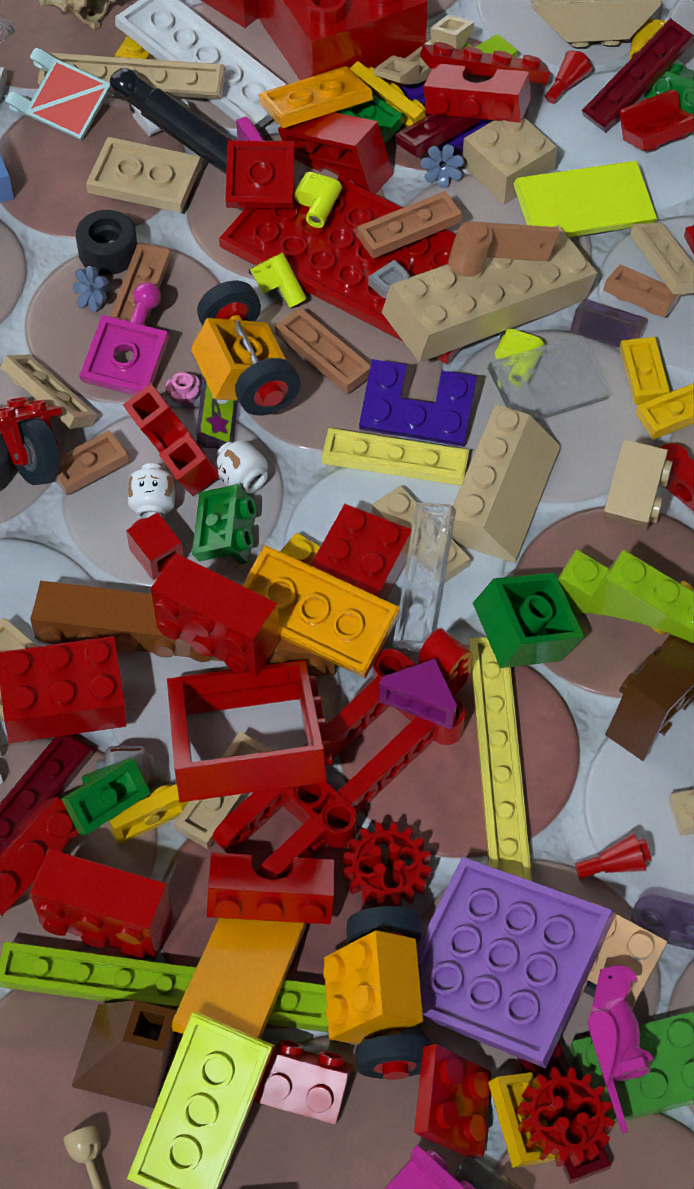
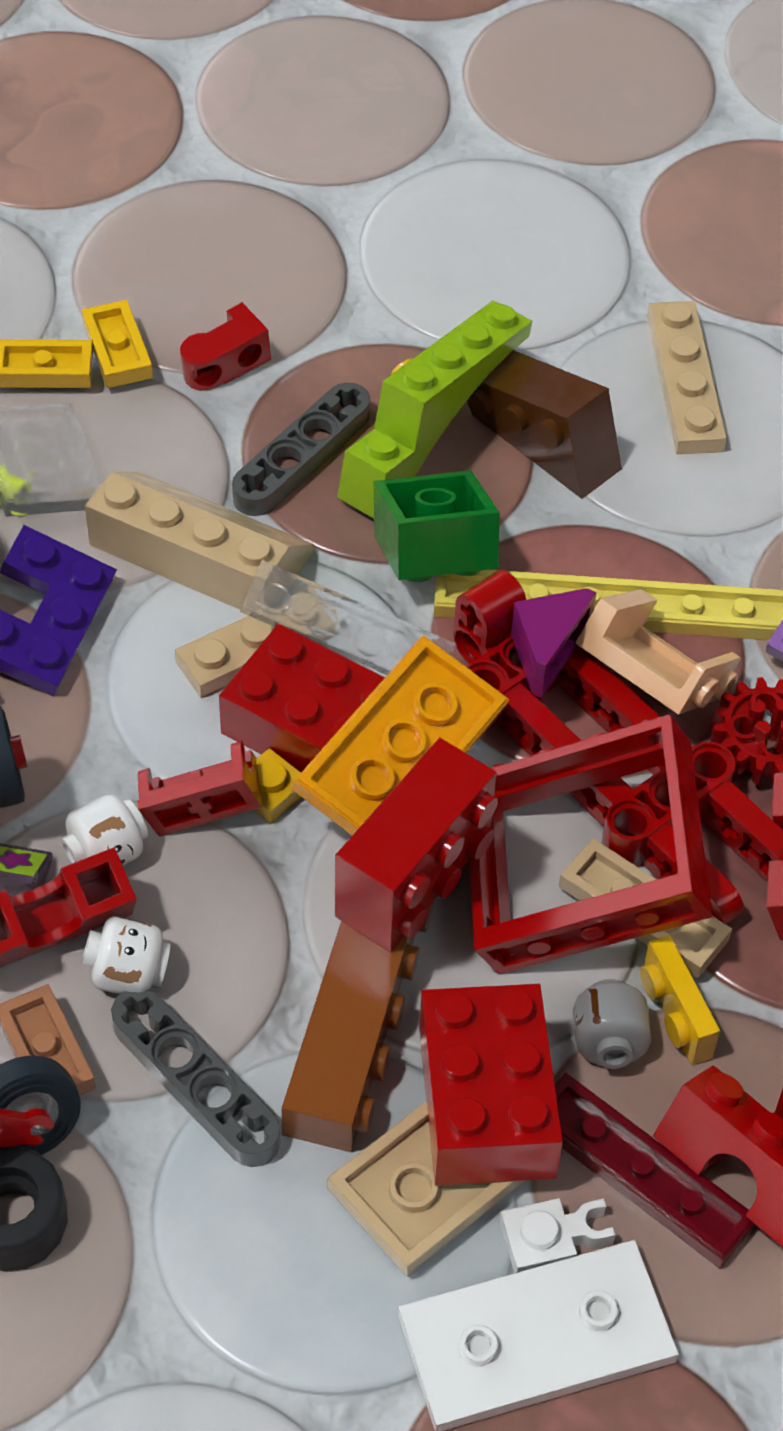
camera: 85 degrees left, 5 degrees down
(72, 540) = (187, 1081): none -> dark grey beam
(105, 795) = (671, 1028): green slope -> none
(153, 544) = (225, 960): red brick -> none
(224, 524) = (201, 870): green bracket -> none
(280, 511) = (200, 794): none -> red hinge
(395, 456) = (115, 657): light yellow tile -> none
(431, 774) = (622, 642): none -> light nougat panel
(608, 534) = (296, 444): none -> dark grey beam
(624, 856) = (759, 492): red cone -> none
(636, 484) = (256, 378): tan brick -> none

